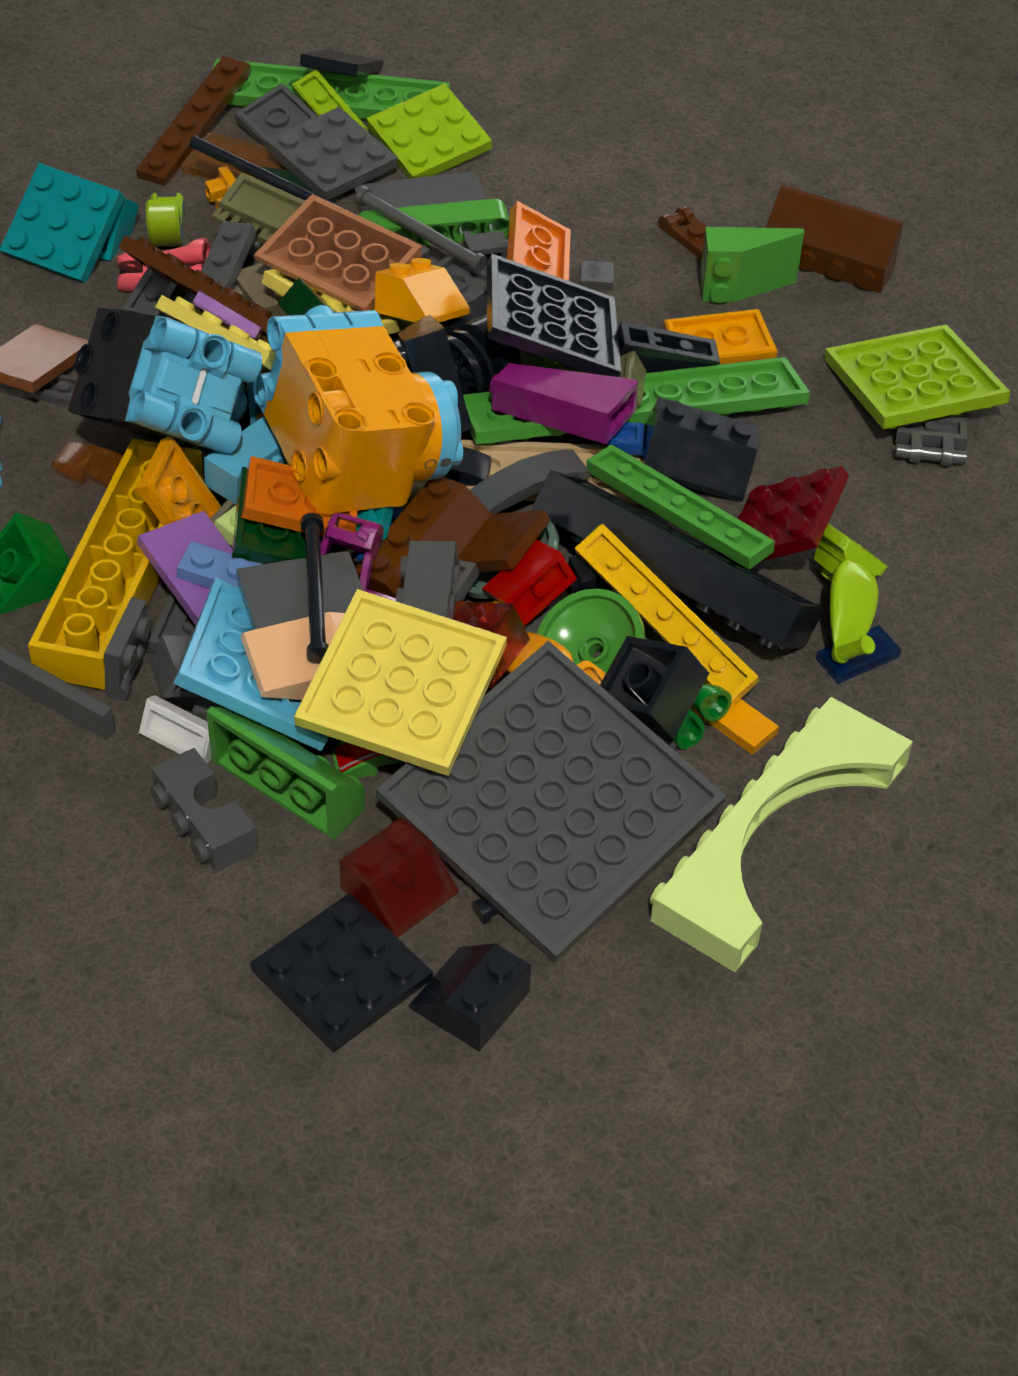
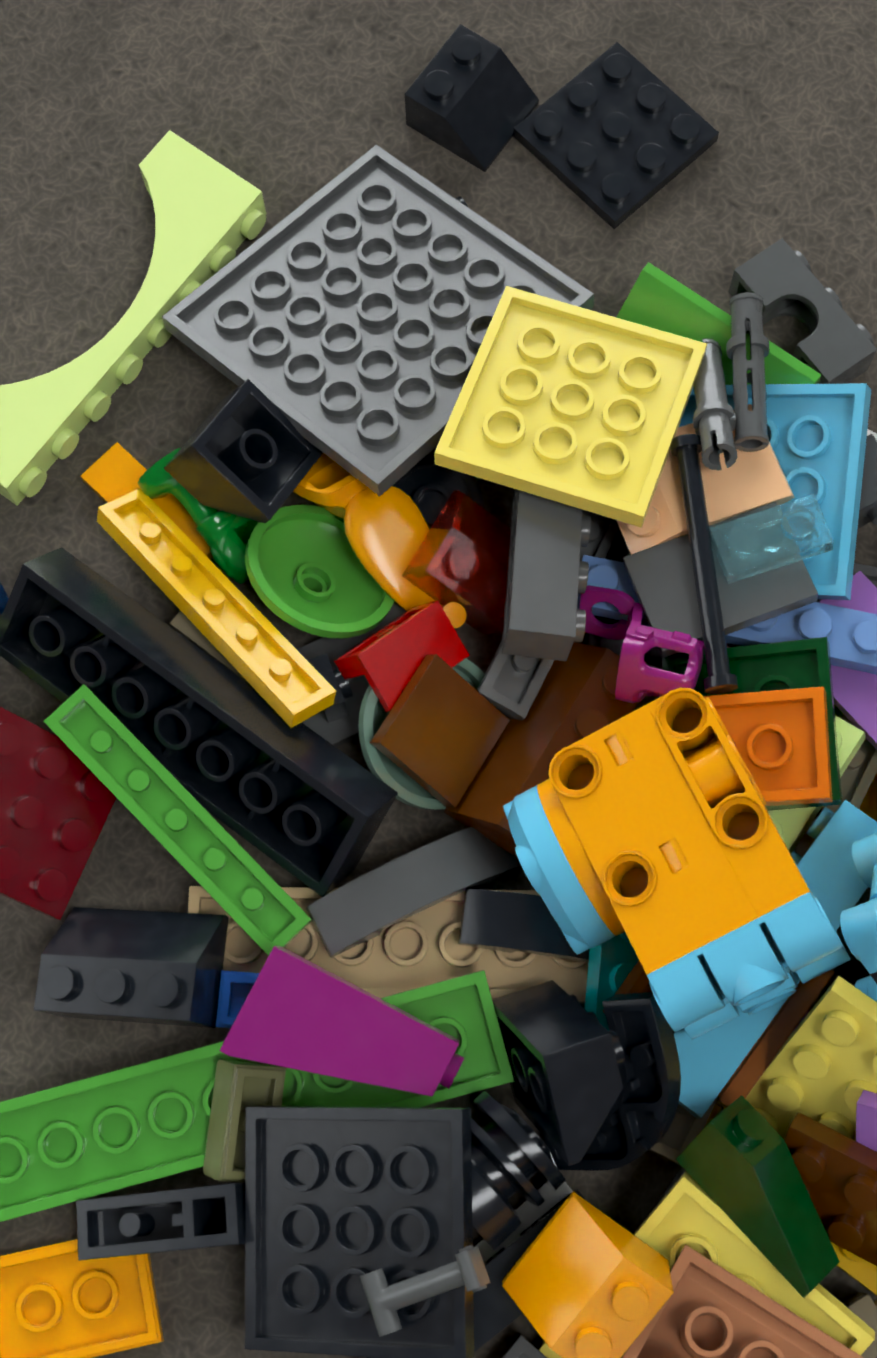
camera: 175 degrees left, 25 degrees up
(261, 734) = (748, 319): none -> dark grey pin
(264, 598) = (771, 538): none -> clear light blue plate
(295, 678) = (713, 415): none -> dark grey pin
(397, 877) = (572, 228): clear red slope -> none
(532, 276) = (386, 1299): none -> dark grey piece

